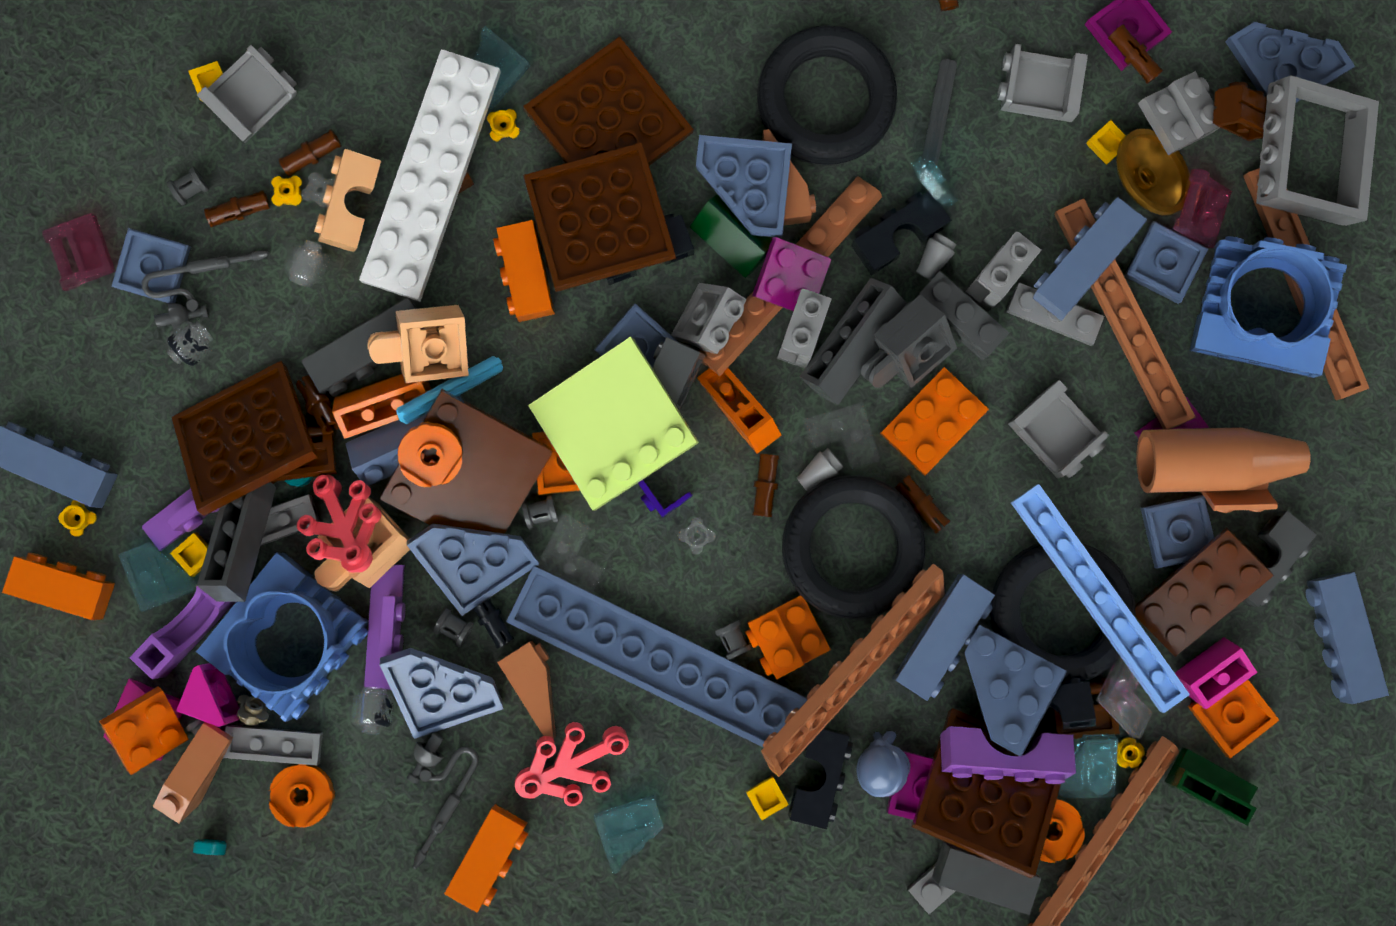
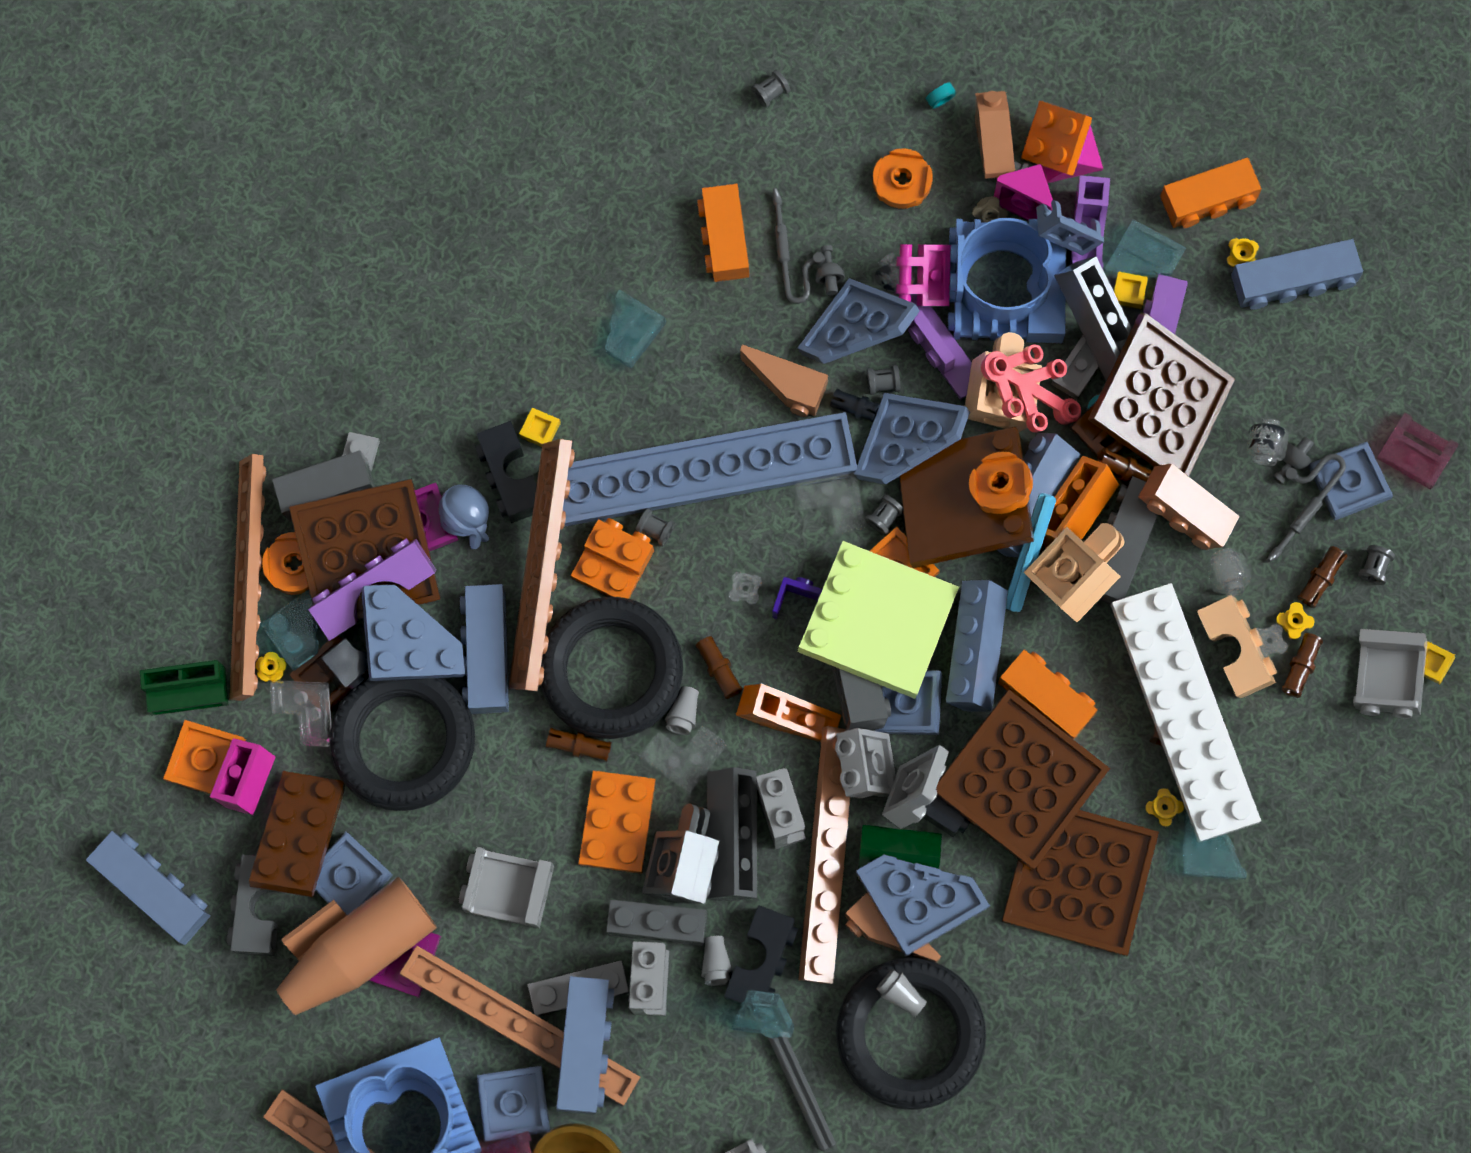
camera: 150 degrees right, 10 degrees down
(202, 634) = (1066, 231): none -> sand blue hinge
(274, 745) = (951, 199): light grey plate -> none
(295, 333) = (1188, 507): none -> brick
(344, 684) = (932, 274): none -> dark pink plate
(550, 348) = (977, 646): none -> sand blue brick
(568, 765) = (731, 311): coral plant -> none
(685, 268) = (915, 787): none -> light grey plate
(788, 271) = (824, 847): magenta plate -> none
(818, 121) = (900, 992): none -> light grey cone
(1100, 598) = (382, 761): light blue plate -> none

